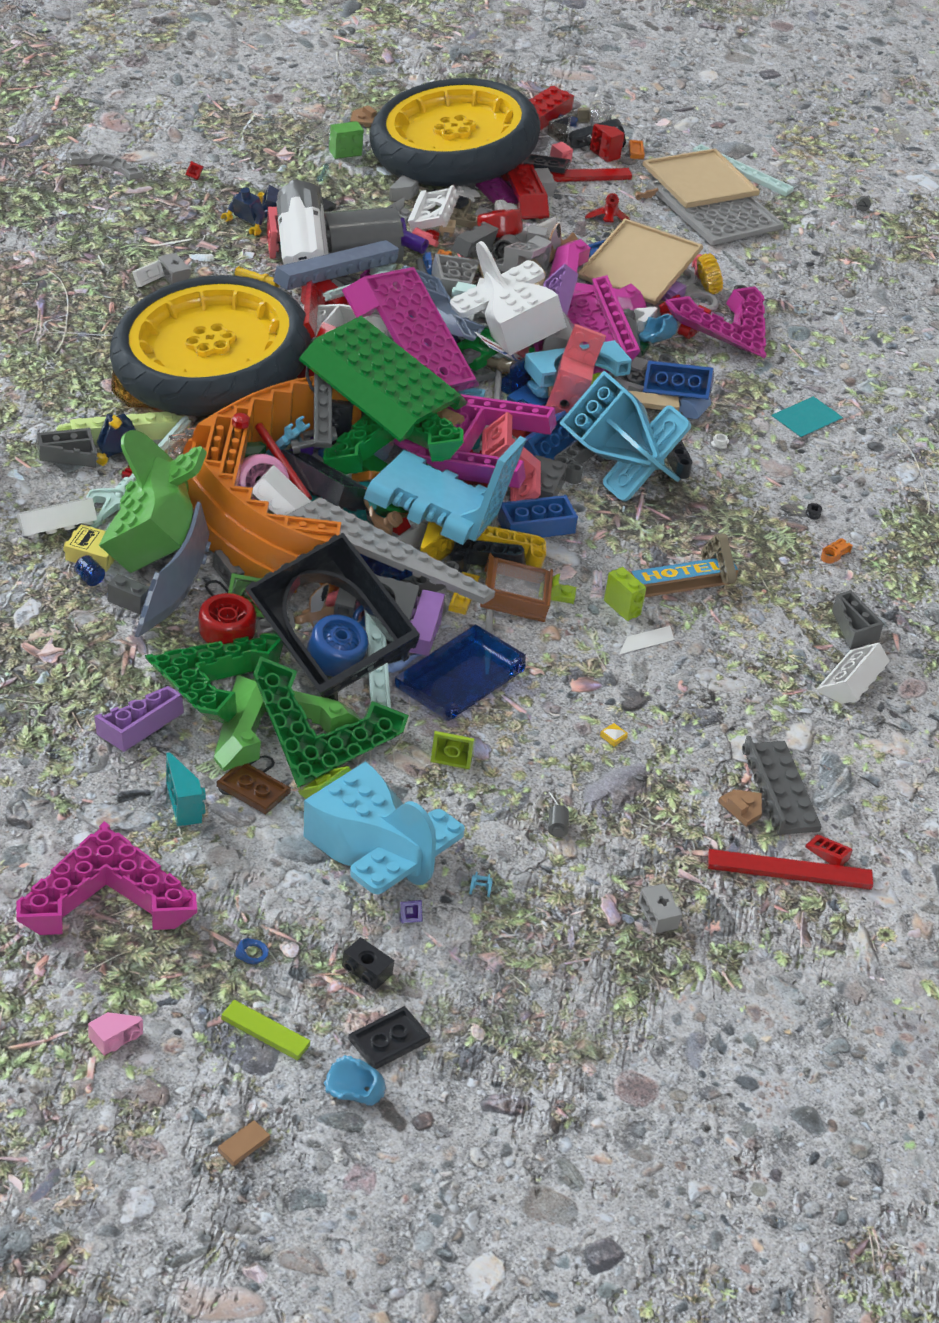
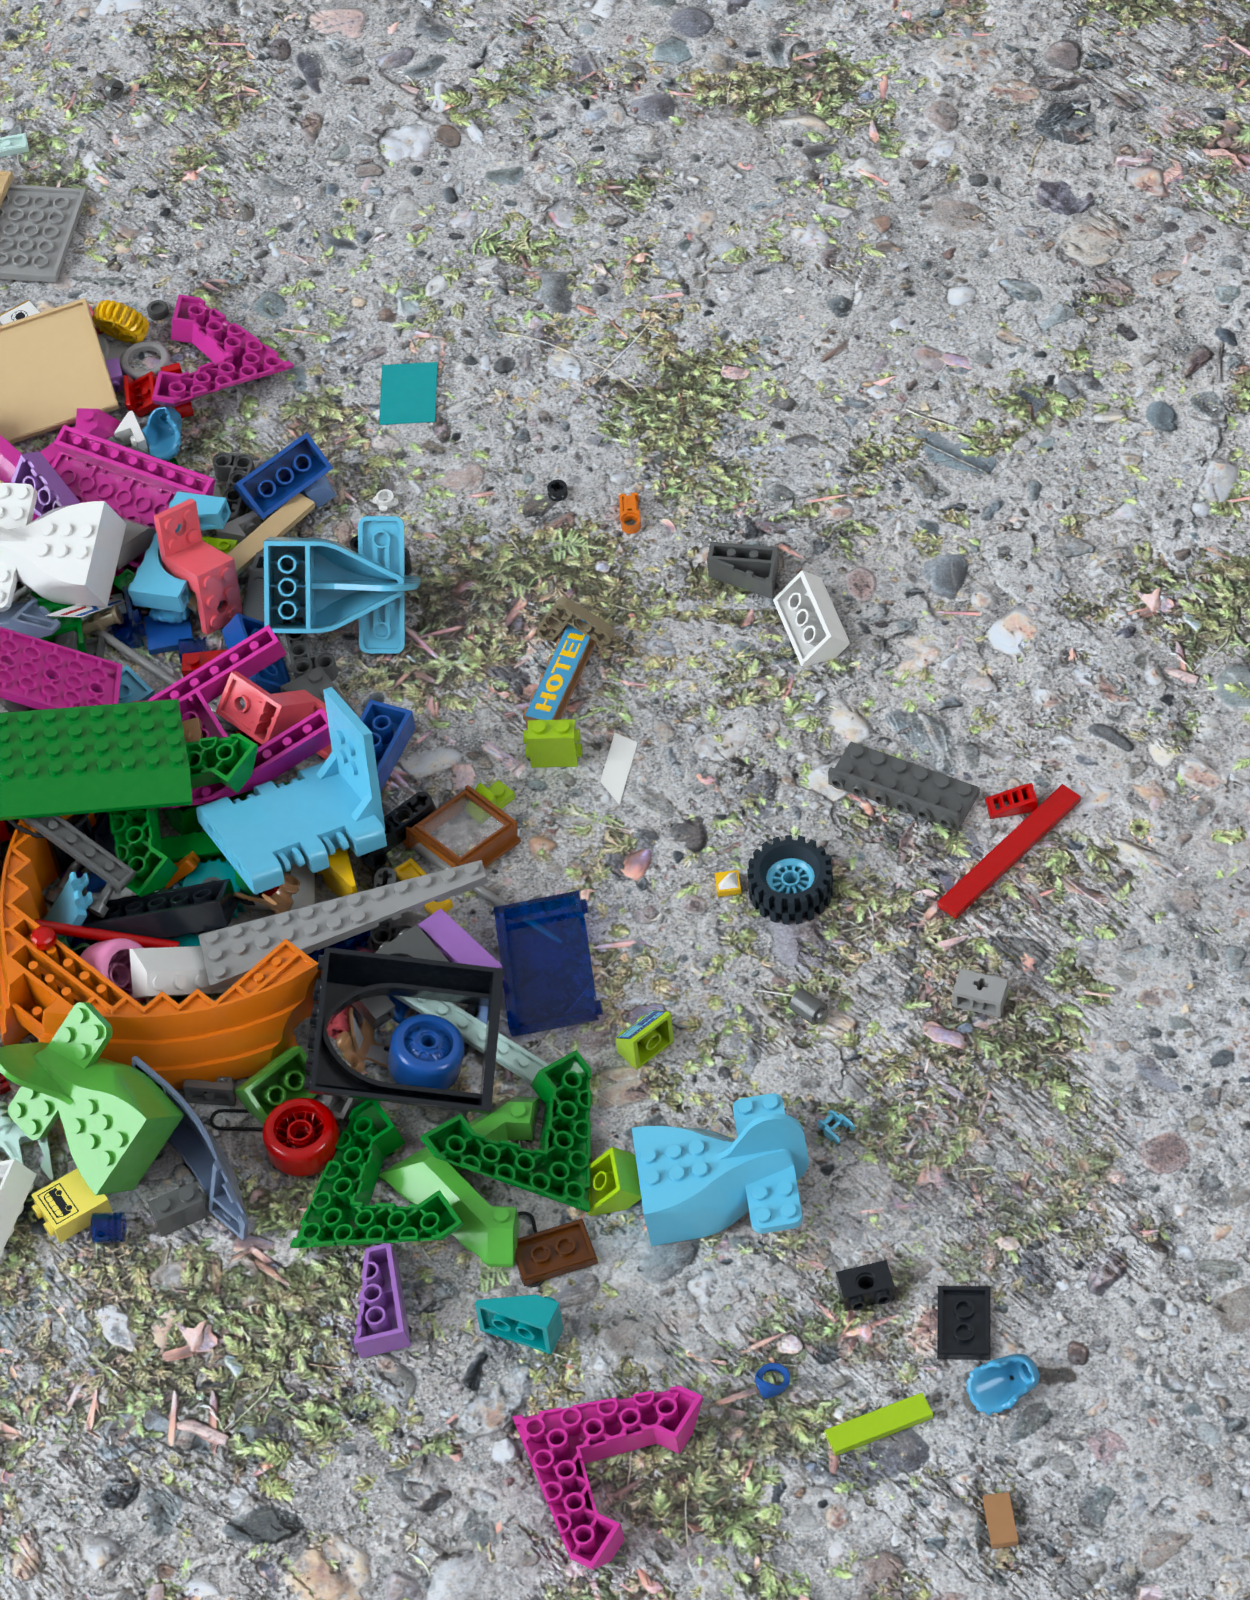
camera: 40 degrees left, 10 degrees up
(114, 1030) = (788, 1560): bright pink slope -> none
(411, 911) = (827, 1208): slope -> none
(533, 545) = (406, 783): yellow beam -> none
(645, 760) = (794, 863): none -> black wheel
(743, 805) = (903, 834): medium nougat plate -> none

